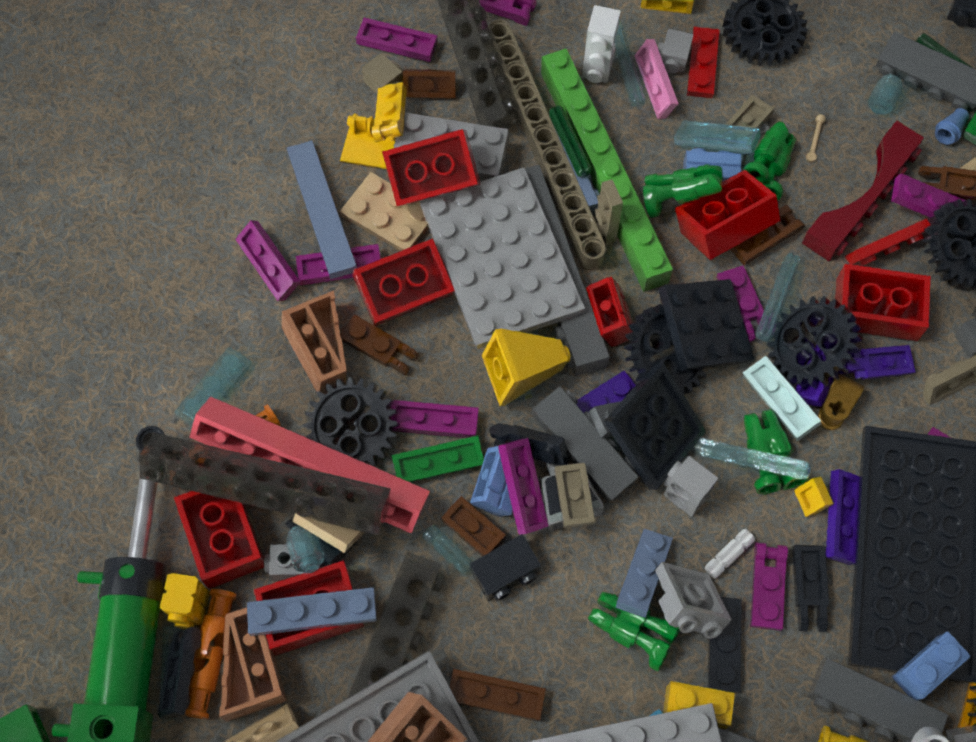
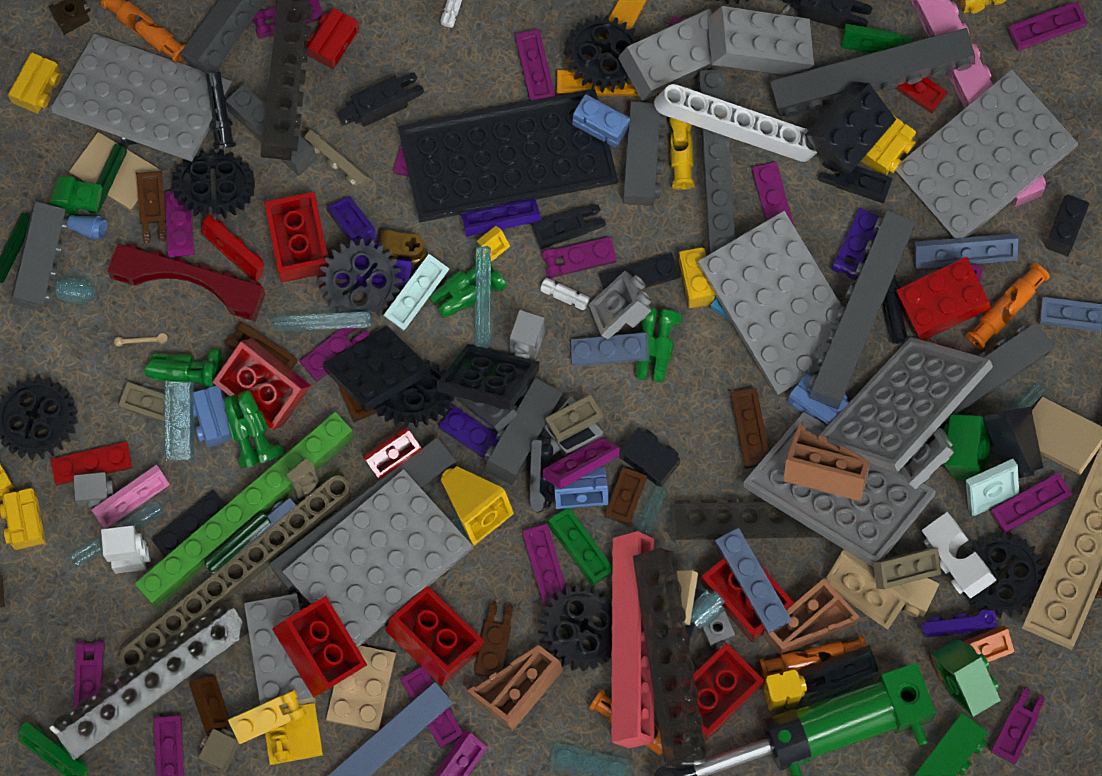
camera: 110 degrees left, 5 degrees up
(612, 121) = (188, 523): none -> black plate

